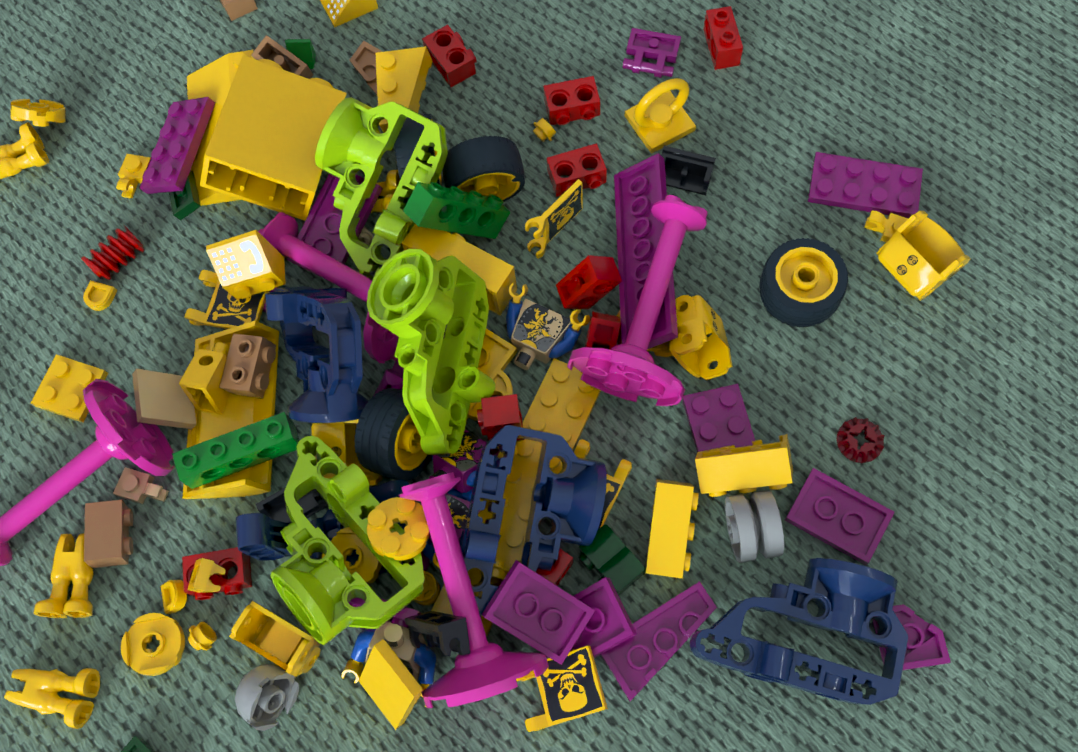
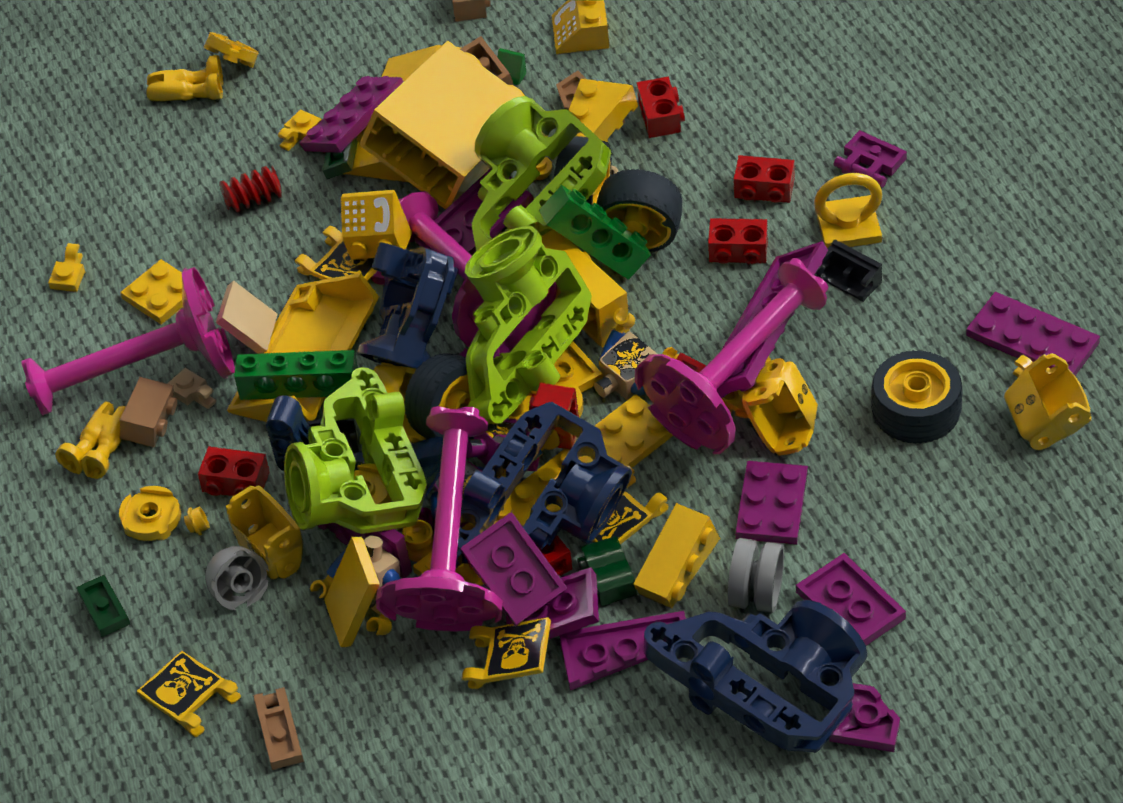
camera: 20 degrees right, 20 degrees down
(43, 688) = (37, 516): yellow piece -> none
(99, 295) = (221, 223): yellow tile -> none
(173, 596) = (185, 481): yellow tile -> none
(200, 576) = (218, 463): yellow tile -> none
(204, 377) = (295, 314): yellow torso -> none
(248, 366) = (337, 313): medium nougat brick -> none
(392, 544) = (400, 453): yellow plate -> none
(442, 631) = (416, 546): black hinge -> none
(543, 130) = (723, 198): yellow plate -> none
(555, 218) = (694, 271): yellow flag -> none
(588, 282) = (699, 331): red brick -> none
(723, 37) = (949, 163): red brick -> none
(745, 467) = (776, 521): yellow wedge -> none
(848, 444) = (907, 559): dark red gear -> none

